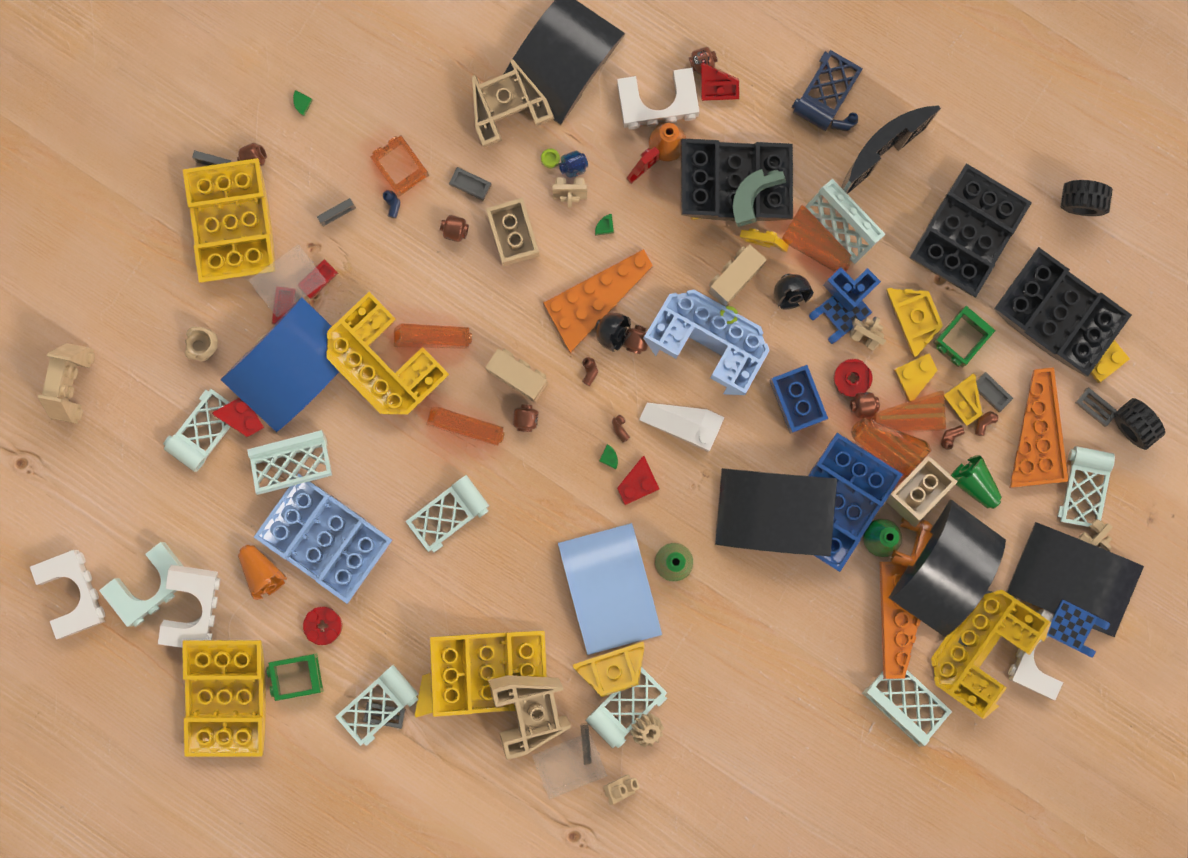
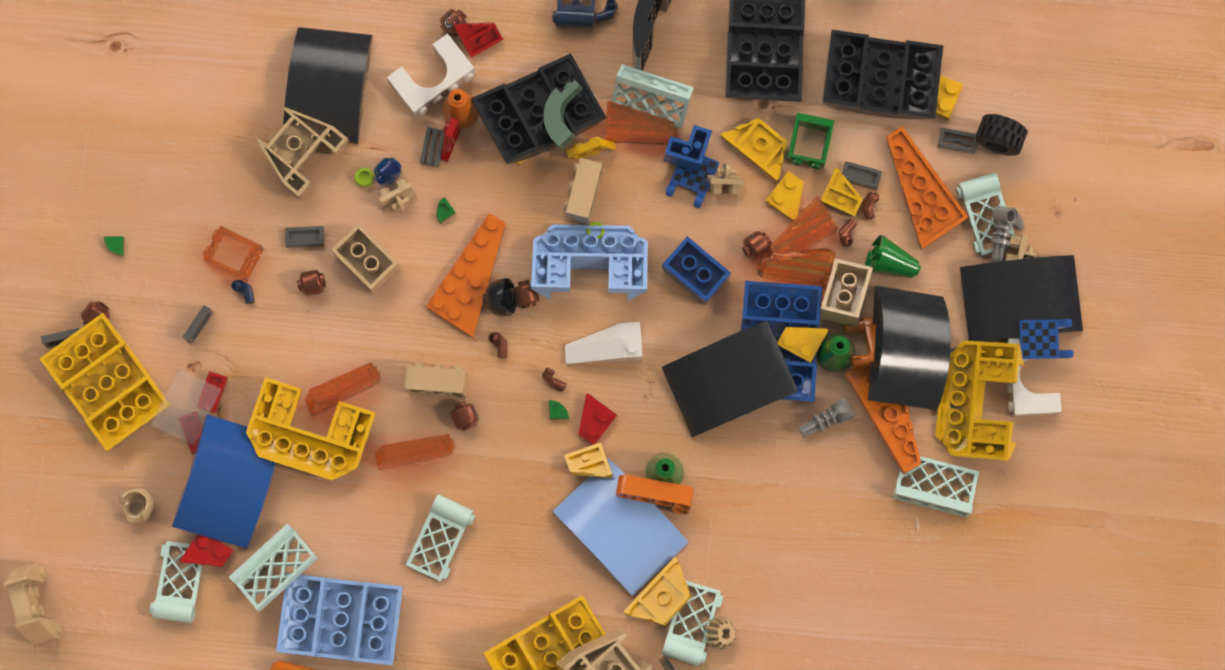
camera: 30 degrees left, 5 degrees down
(612, 518) = (589, 462): none -> yellow wing
(635, 150) = (435, 131): none -> dark grey tile
(656, 577) = (655, 492): none -> orange beam
(792, 290) = (639, 179): black cylinder -> none
(858, 513) = (802, 341): none -> yellow wing
(858, 592) = (840, 411): none -> light grey piece
(860, 370) = (737, 217): red plate -> none
(1100, 500) = (1004, 217): none -> light grey piece

